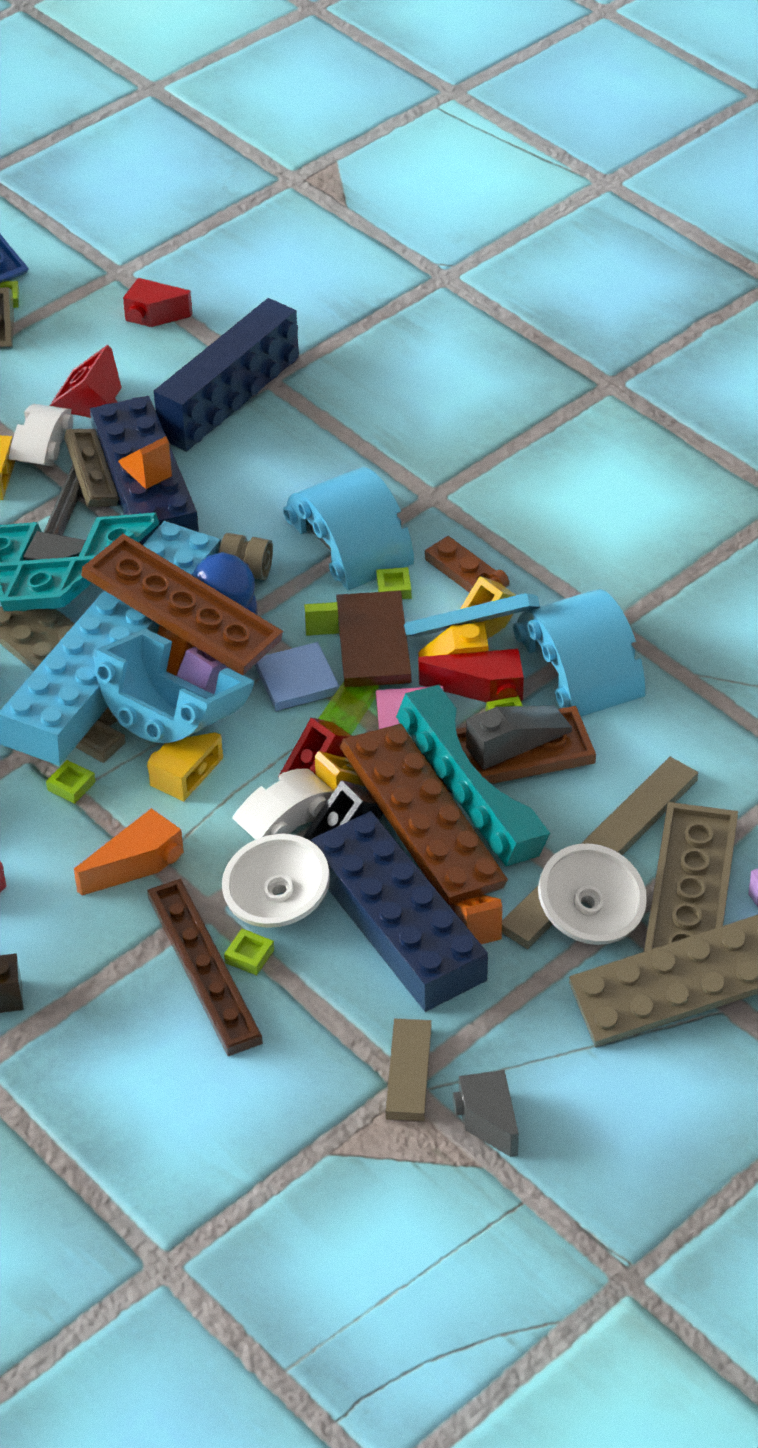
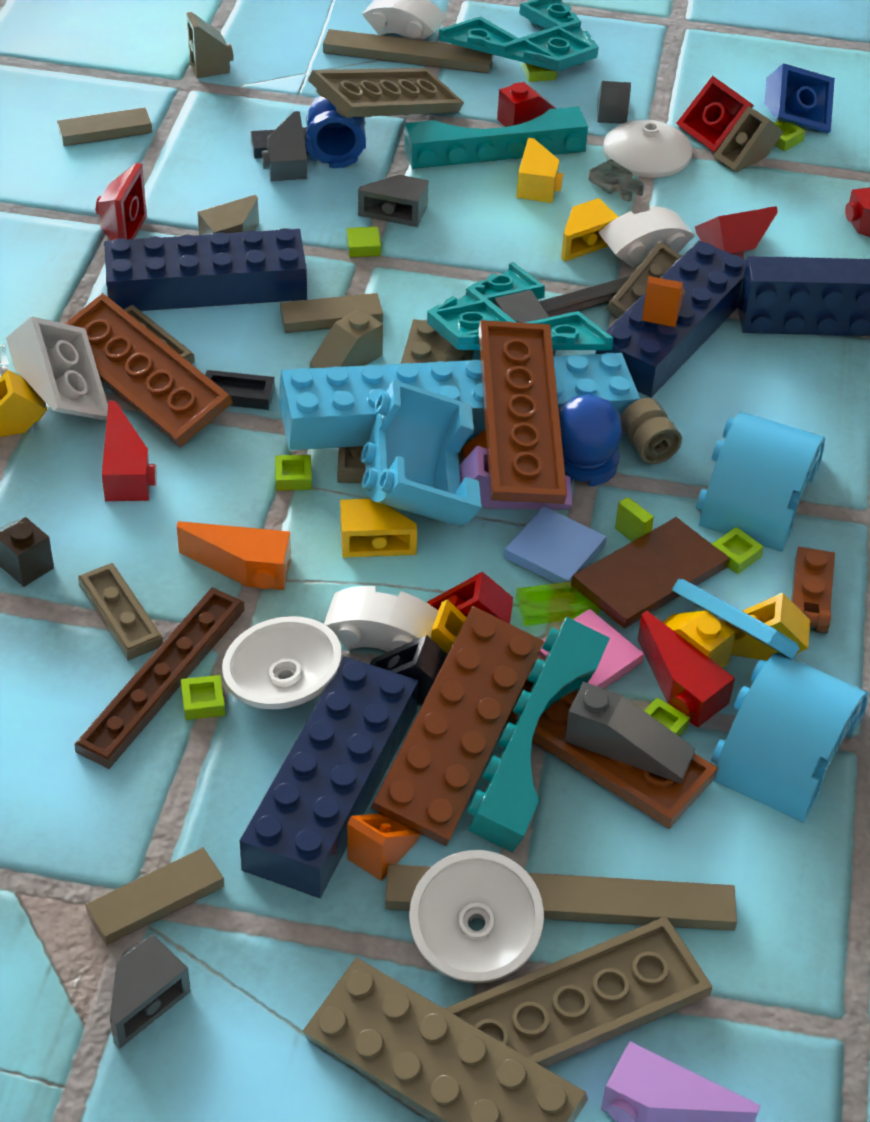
camera: 50 degrees right, 0 degrees up
(112, 959) = (120, 611): none -> dark tan tile

